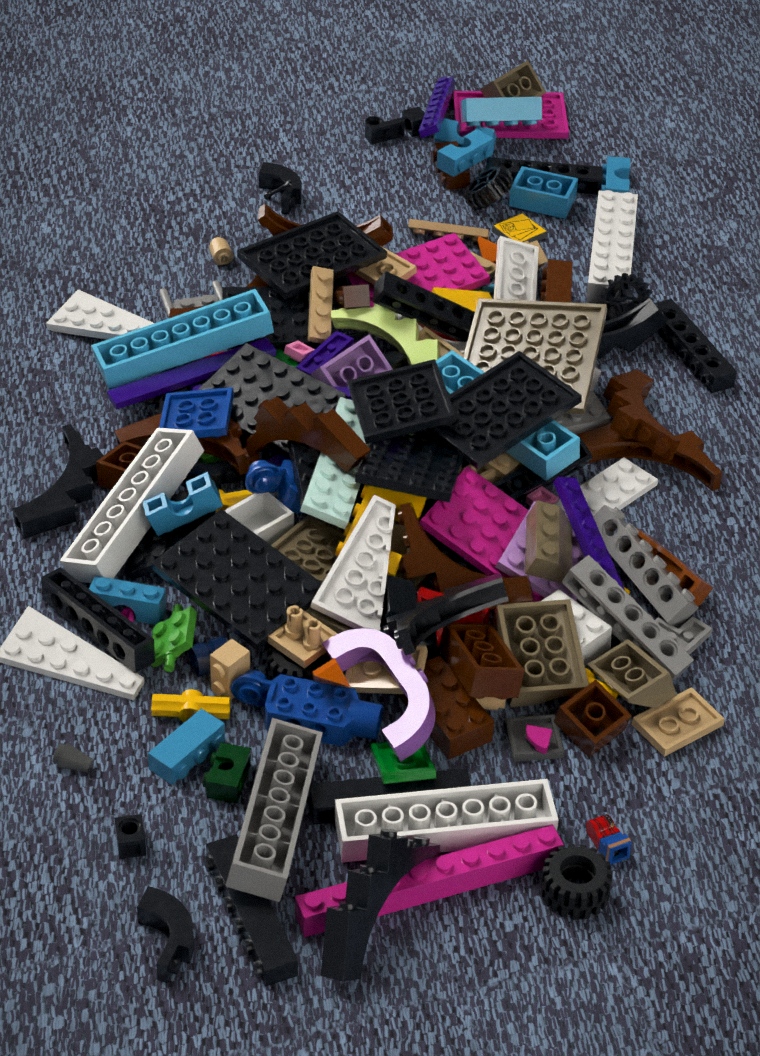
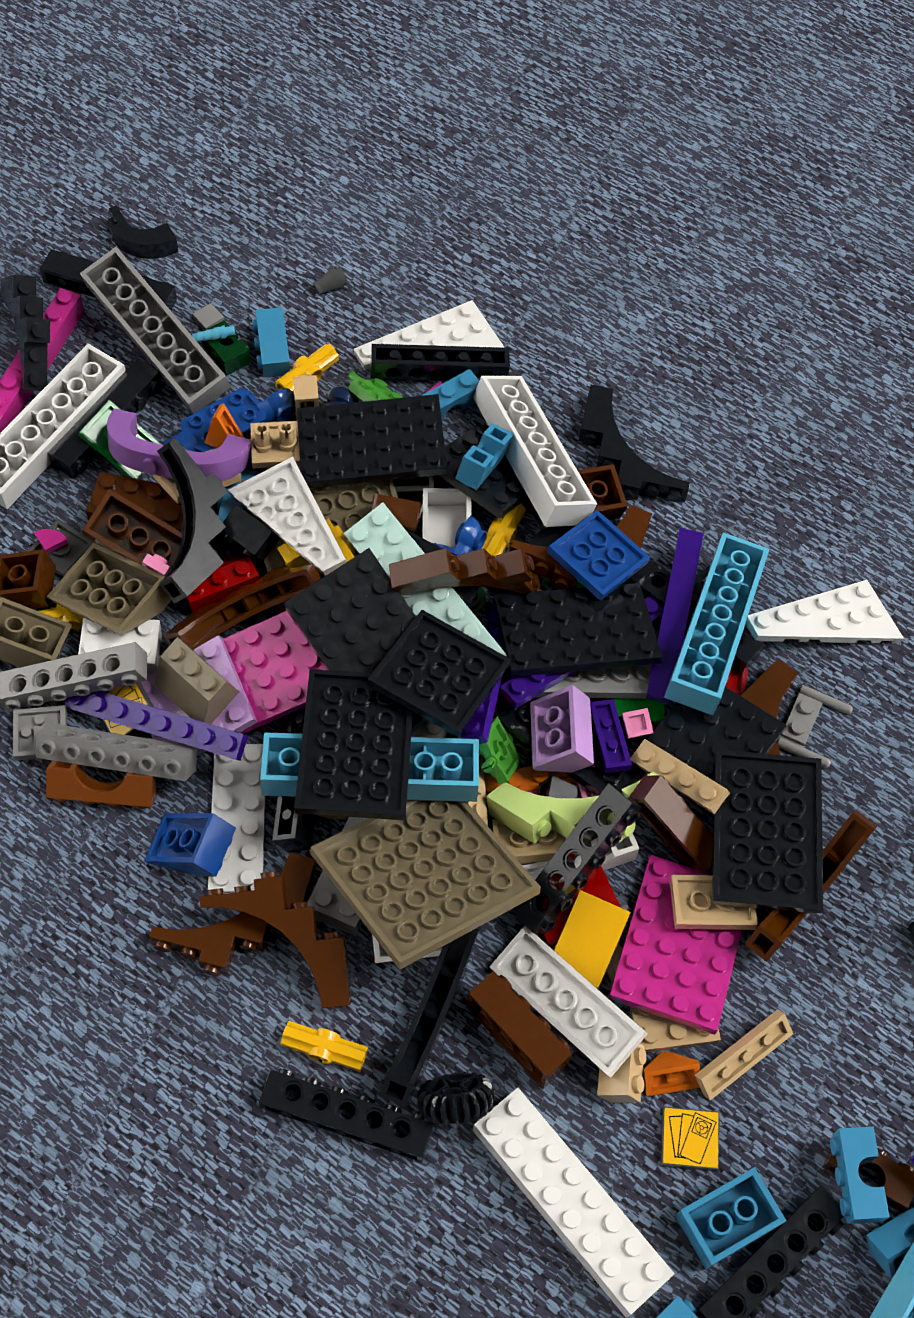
camera: 130 degrees right, 20 degrees up
(130, 836) = (231, 265): black brick -> none
(204, 817) = (208, 316): none -> light grey tile
(220, 251) = (874, 800): tan brick -> none
(227, 767) = (213, 334): none -> medium azure animal
(286, 532) = (404, 510): none -> reddish brown piece
(488, 187) = (778, 1150): black gear -> none
(494, 620) = (156, 564): none -> bright pink plate
(646, 496) = (191, 843): none -> blue slope
(669, 376) = (324, 1045): none -> yellow piece

